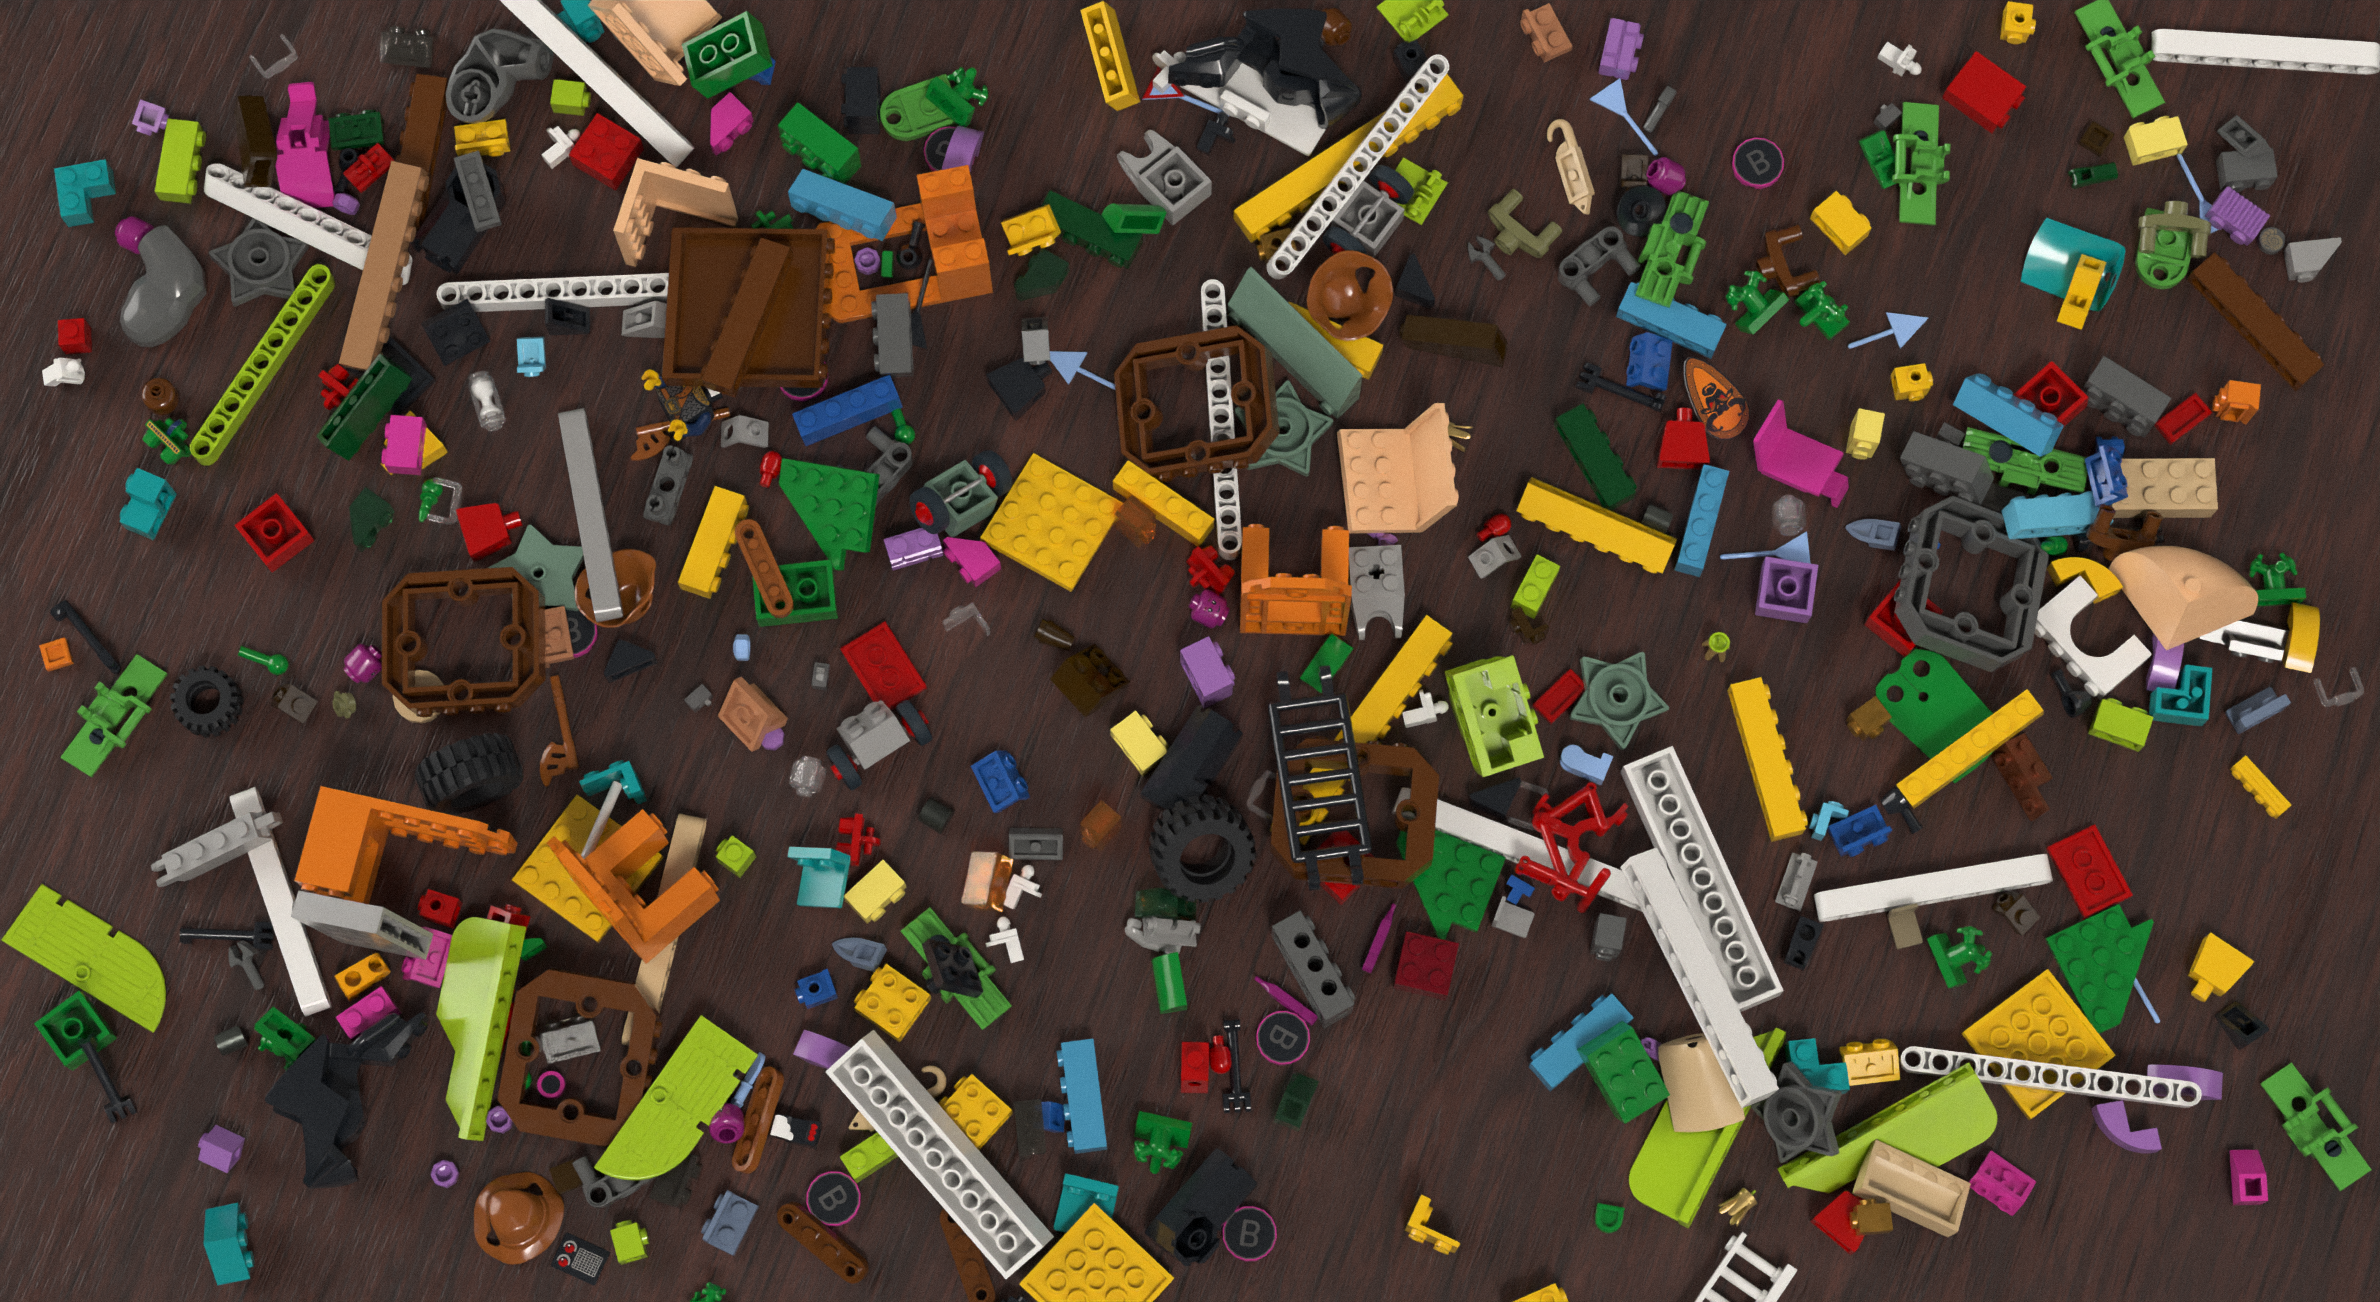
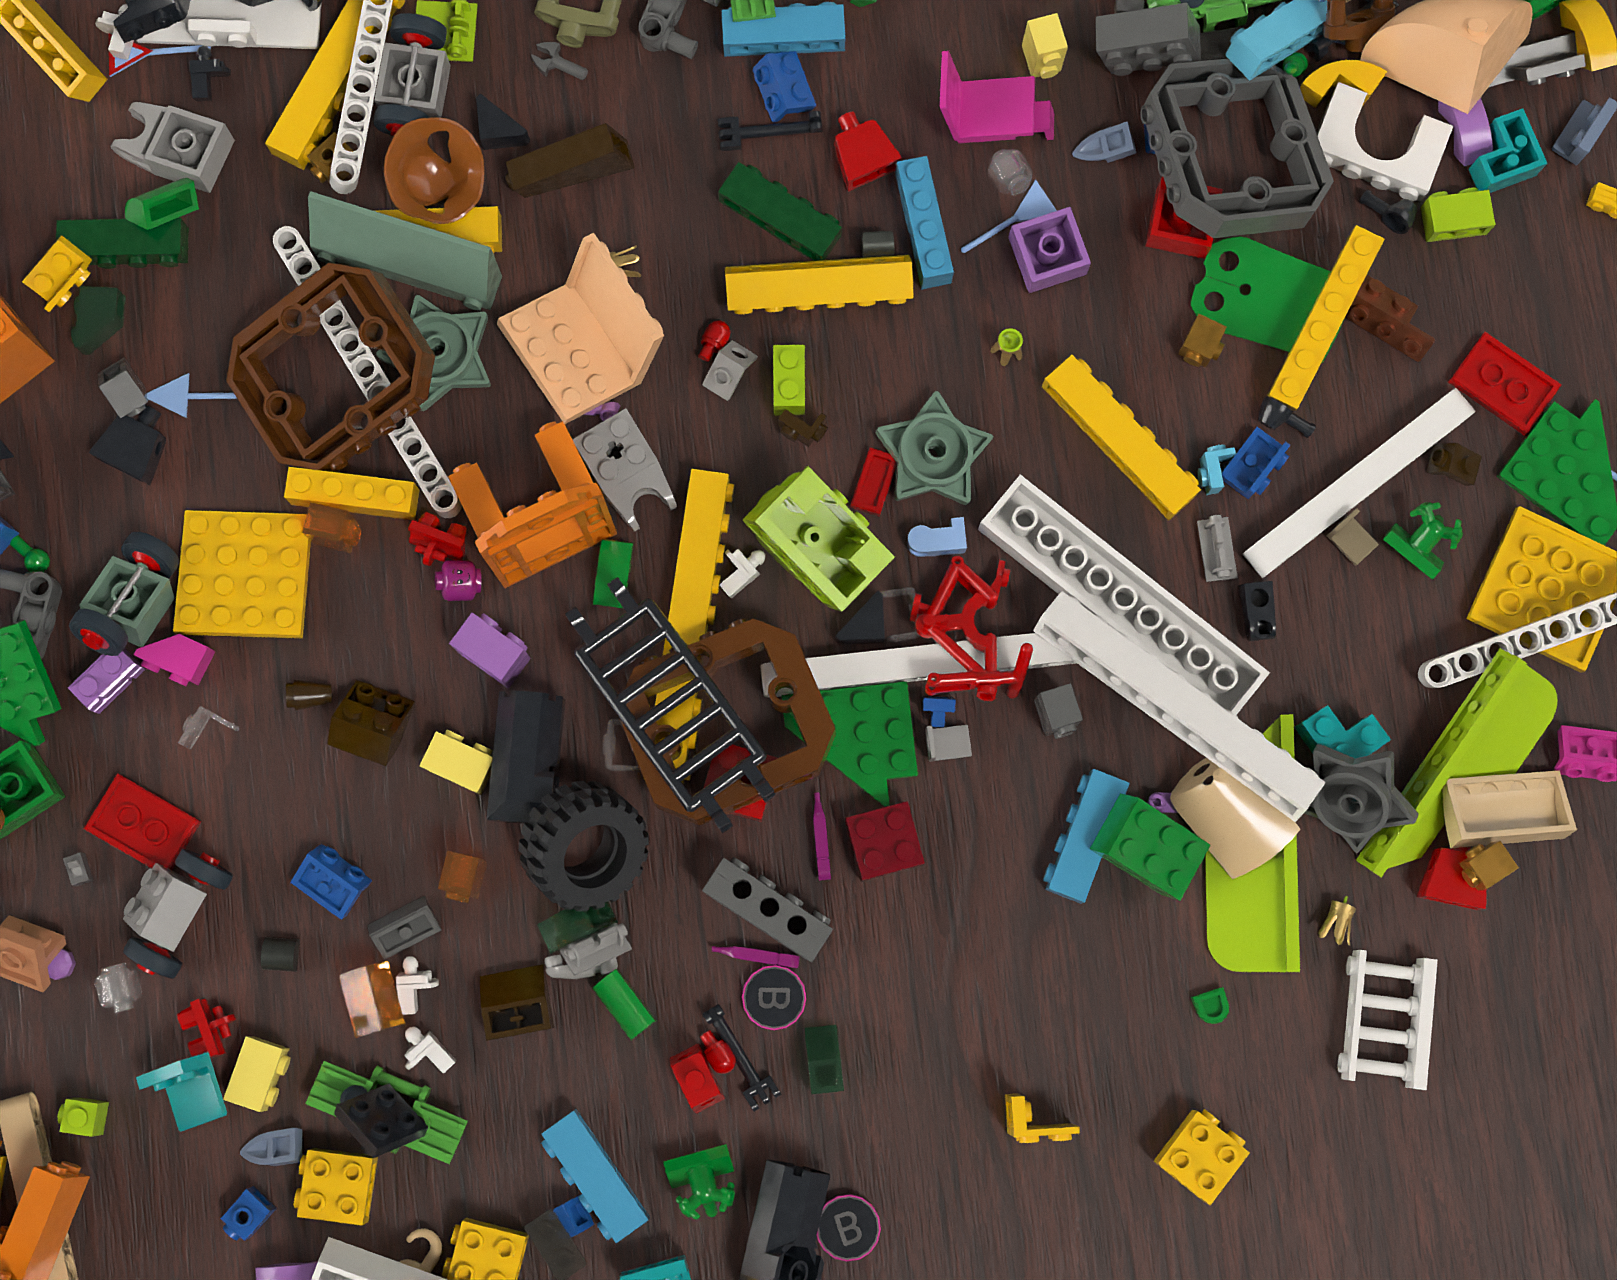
camera: 30 degrees left, 5 degrees up
(1090, 940) = (515, 1002): none -> dark brown slope
(1715, 400) = (872, 89): shield -> none
(1871, 1062) = (1393, 696): yellow bracket -> none

